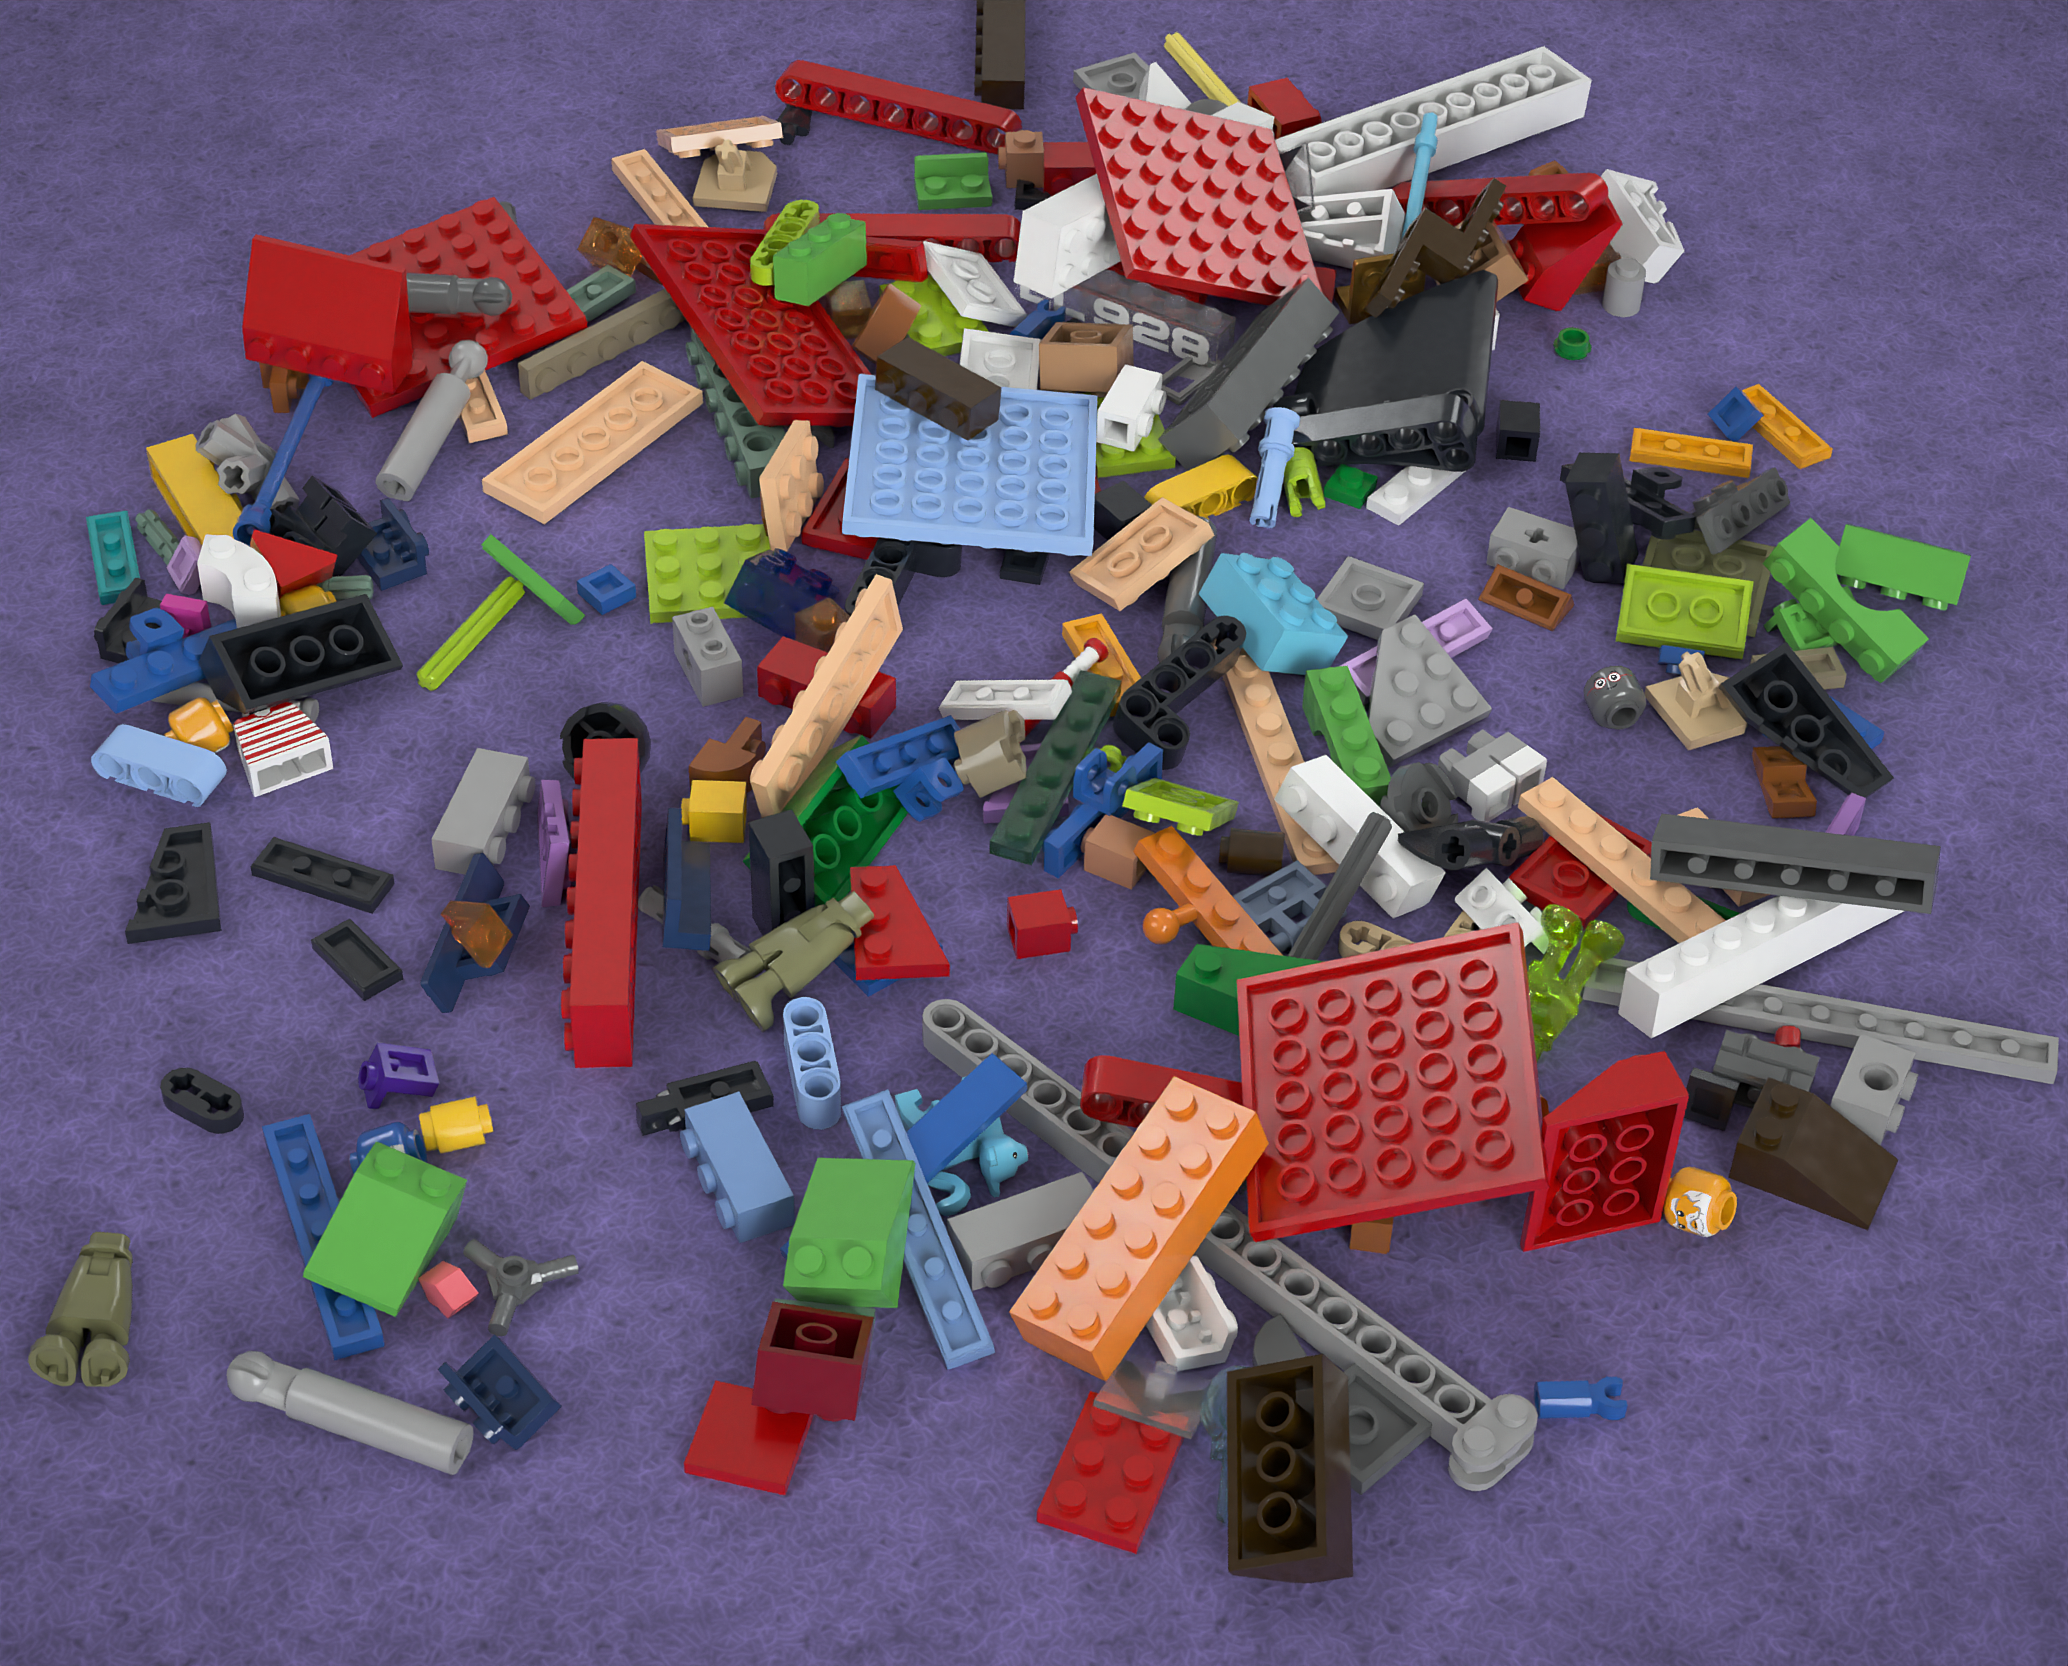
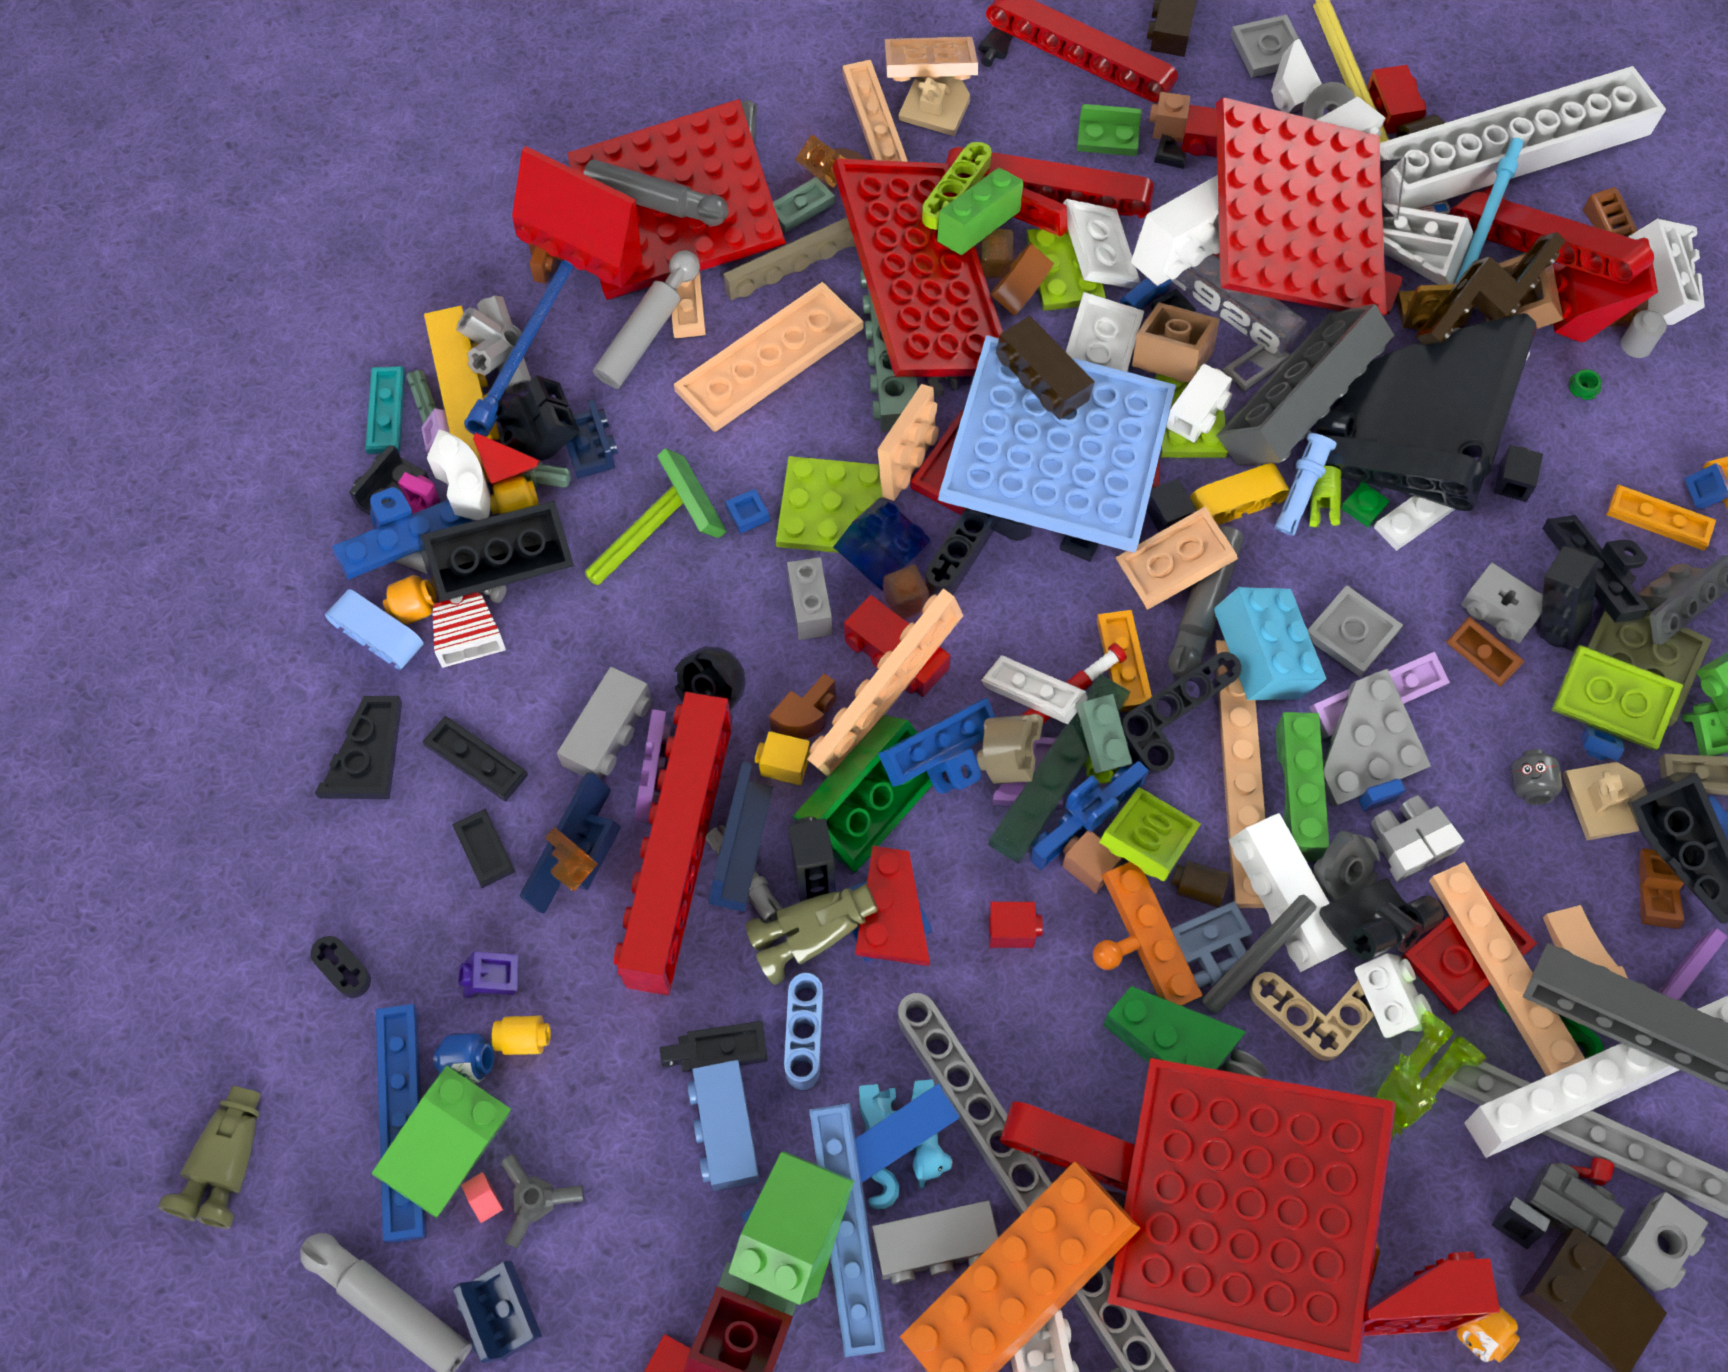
camera: 15 degrees right, 20 degrees up
(1100, 716) = (1103, 733): none -> sand green plate
(1442, 737) = (1381, 794): none -> blue tile

